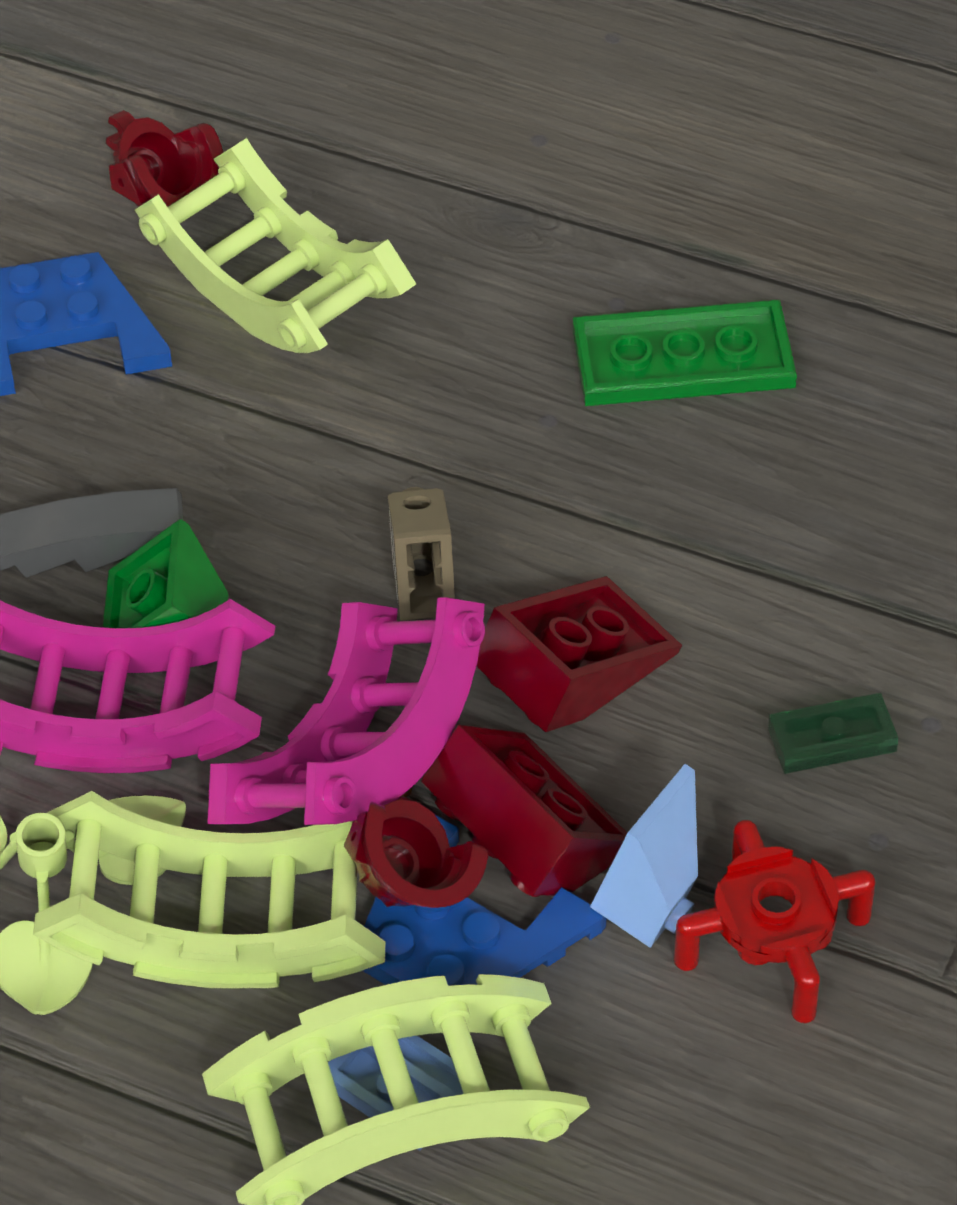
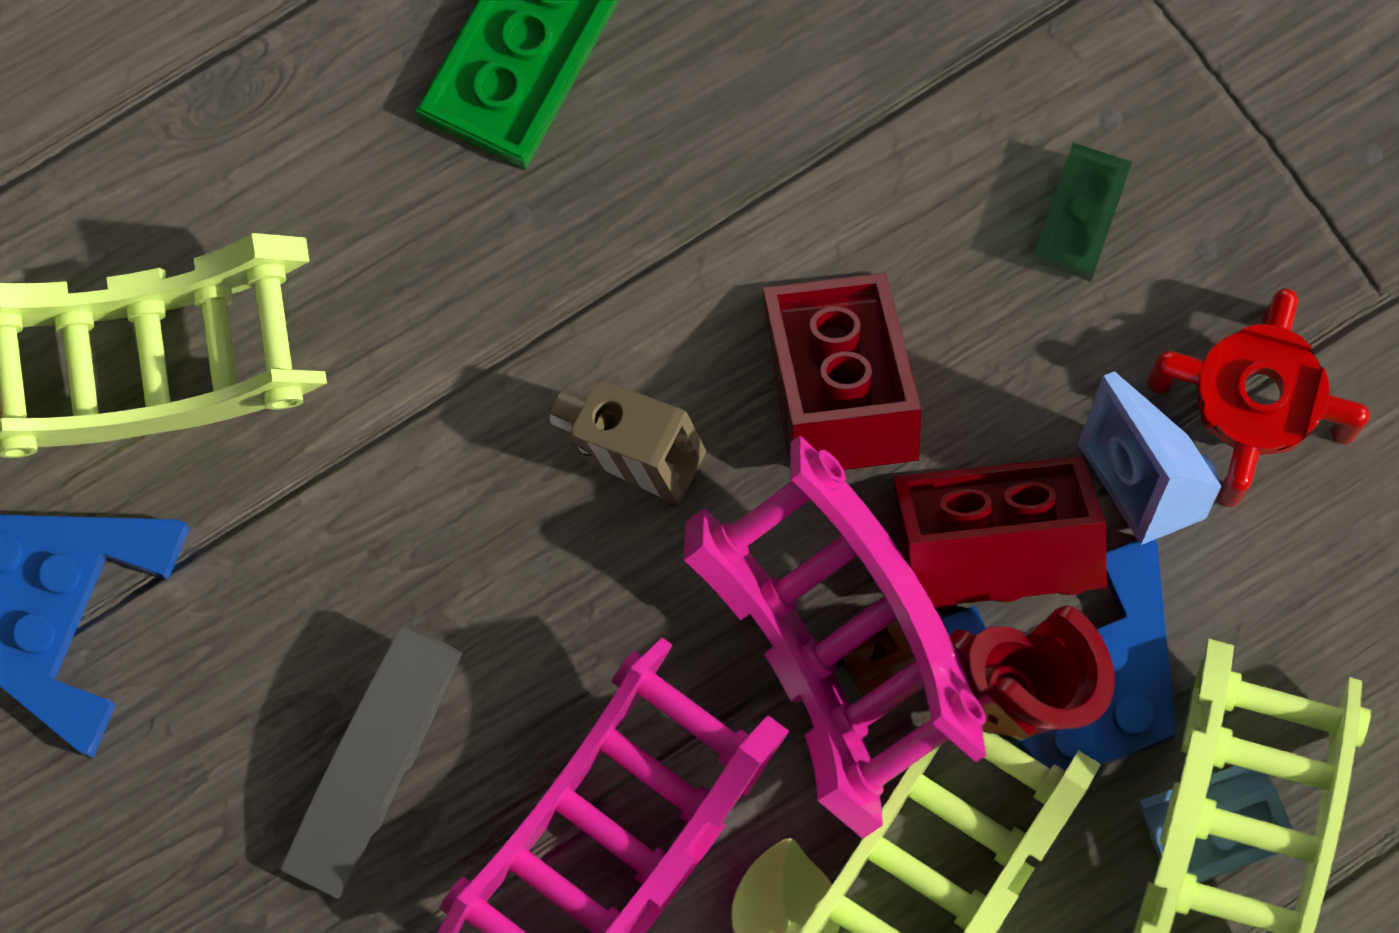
camera: 55 degrees left, 25 degrees up
(163, 582) = (521, 718): green slope -> none

